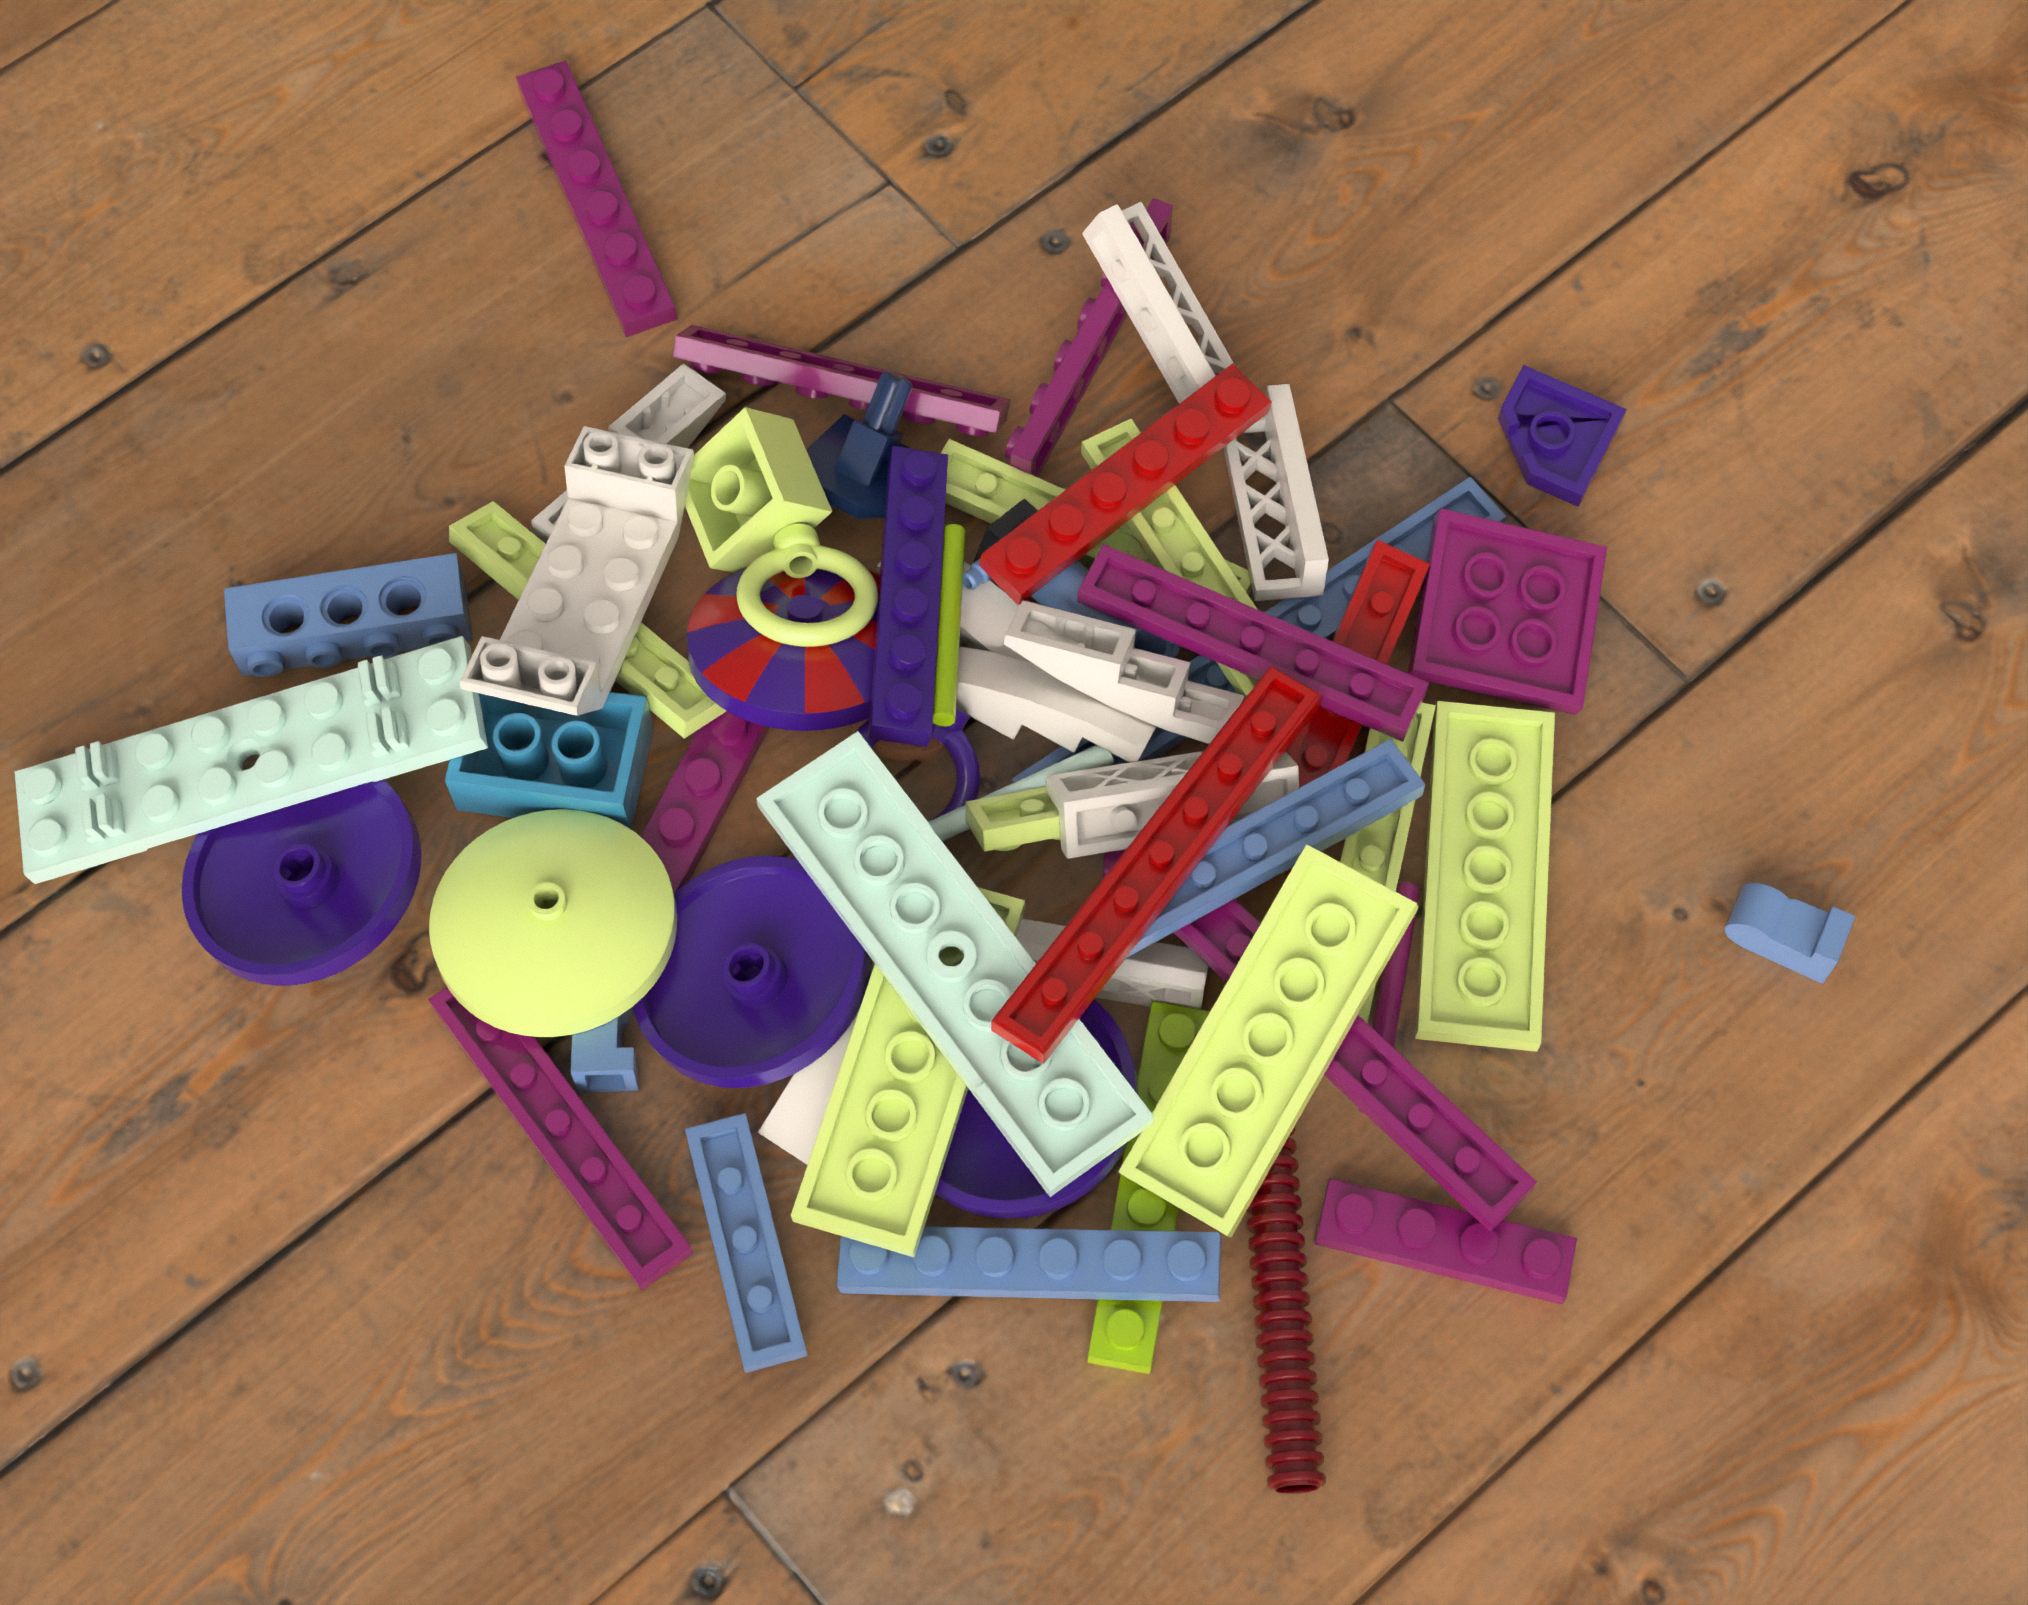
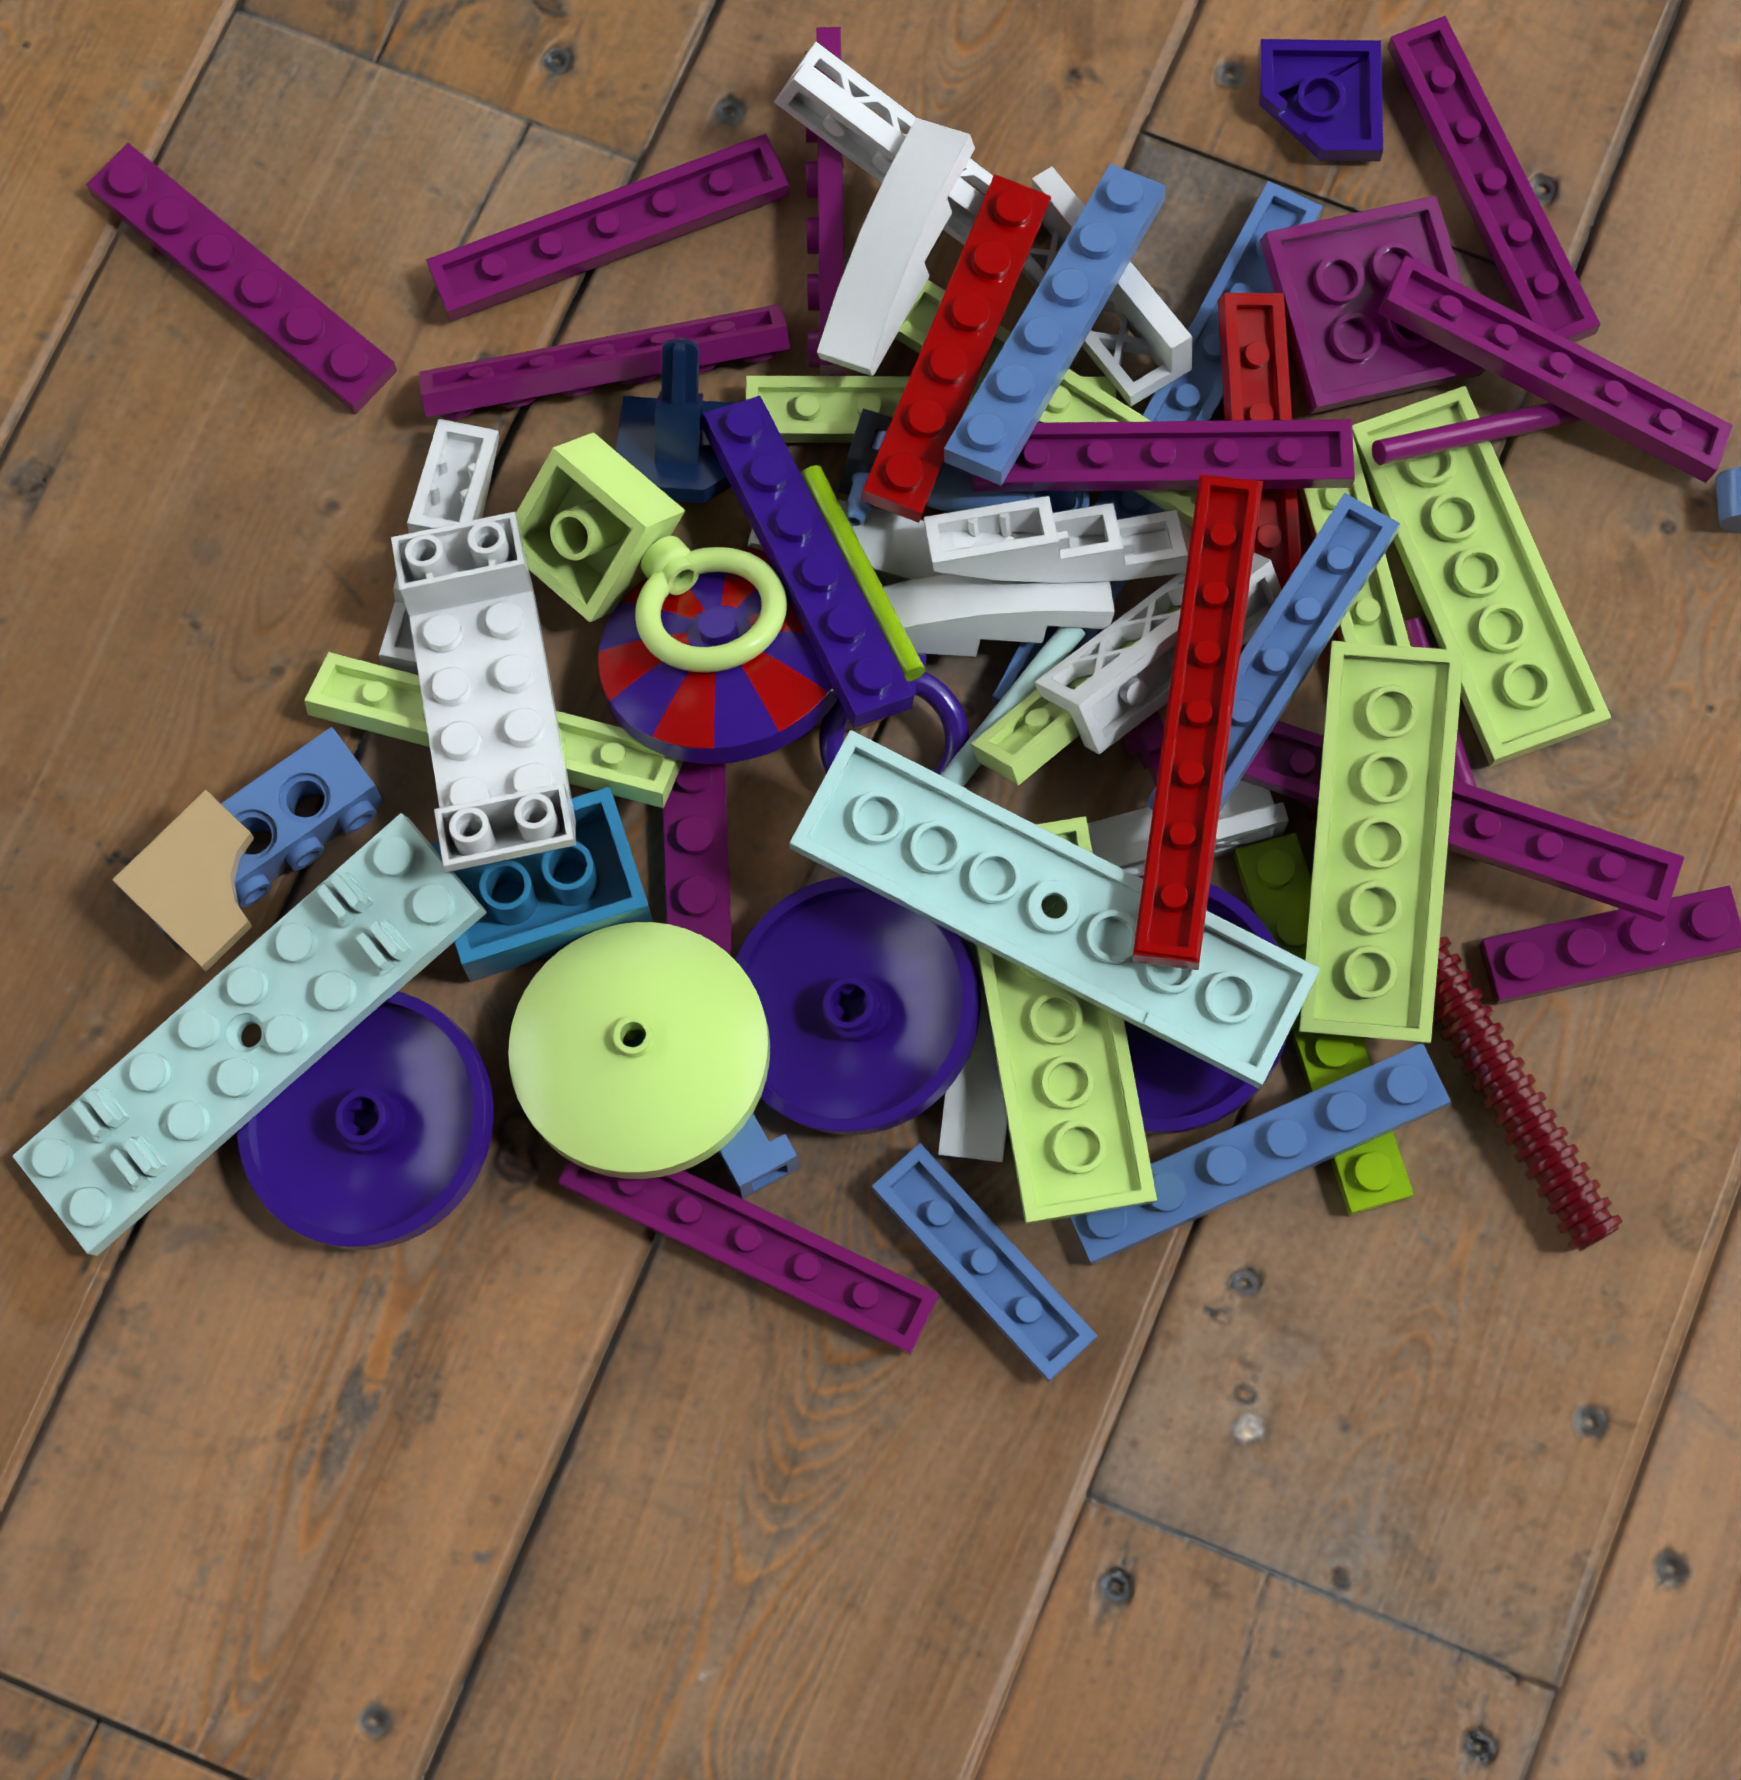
camera: 25 degrees left, 10 degrees up
(271, 616) = (189, 880): none -> tan tile
(904, 281) = (608, 227): none -> magenta plate
(1105, 390) = (891, 249): none -> white slope
(1215, 498) = (1054, 325): none -> medium blue plate
(1546, 751) = (1469, 432): none -> magenta bar
(1640, 732) = (1555, 369): none -> magenta plate
(1666, 568) = (1491, 180): none -> magenta plate

